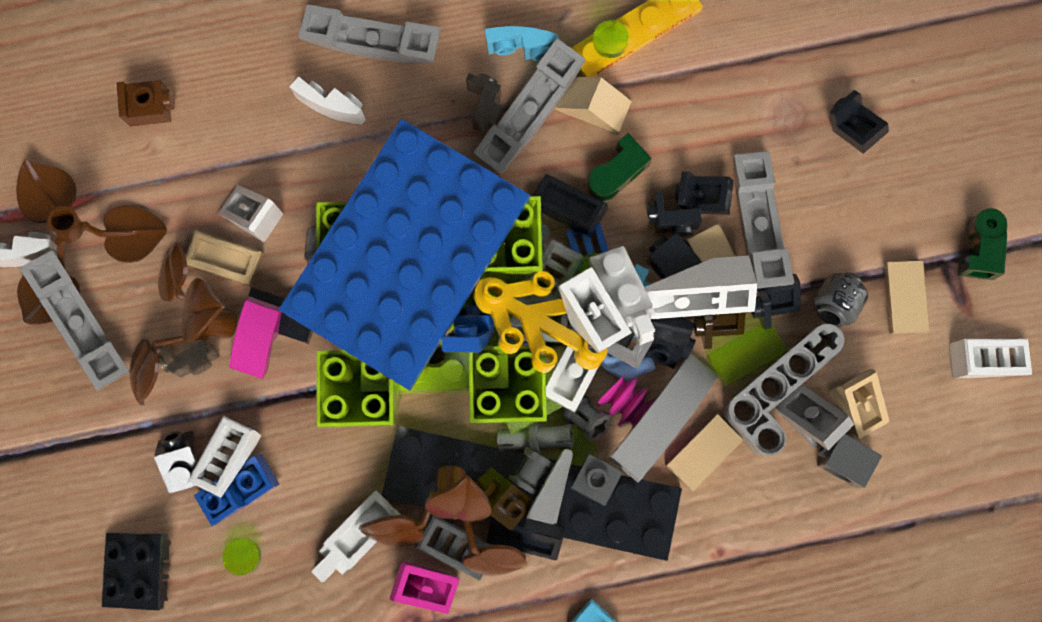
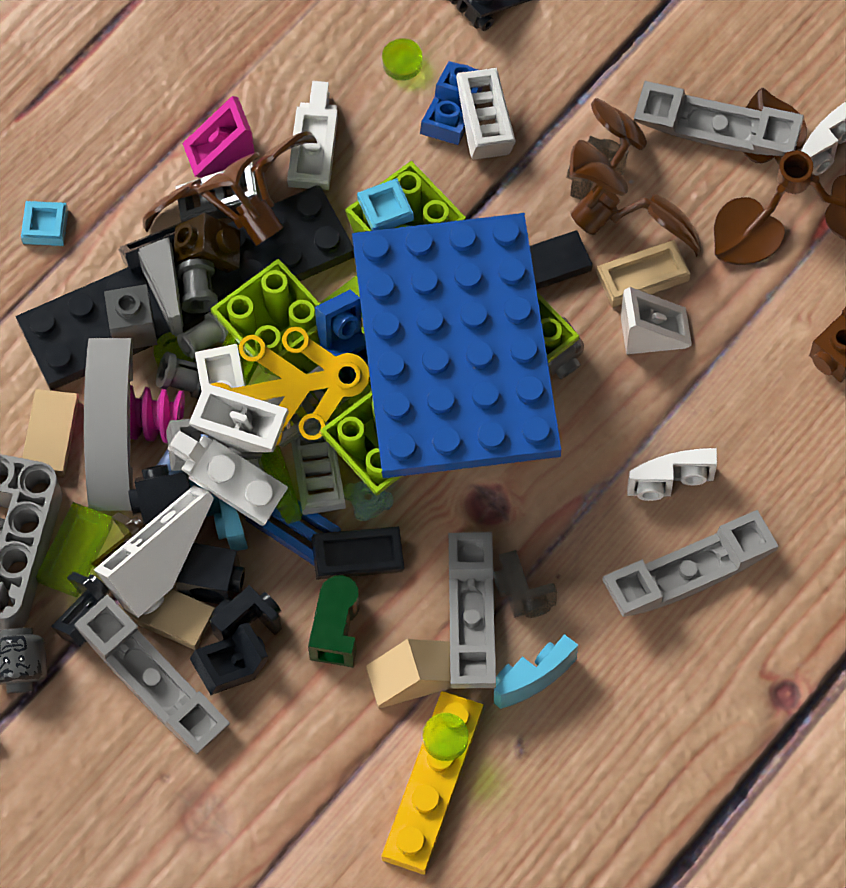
camera: 140 degrees right, 15 degrees down
(176, 459) = (527, 85): bracket -> none
(254, 337) = (547, 222): dark pink slope -> none
(367, 396) = (385, 206): none -> medium azure tile
(857, 123) = (125, 850): black bracket -> none

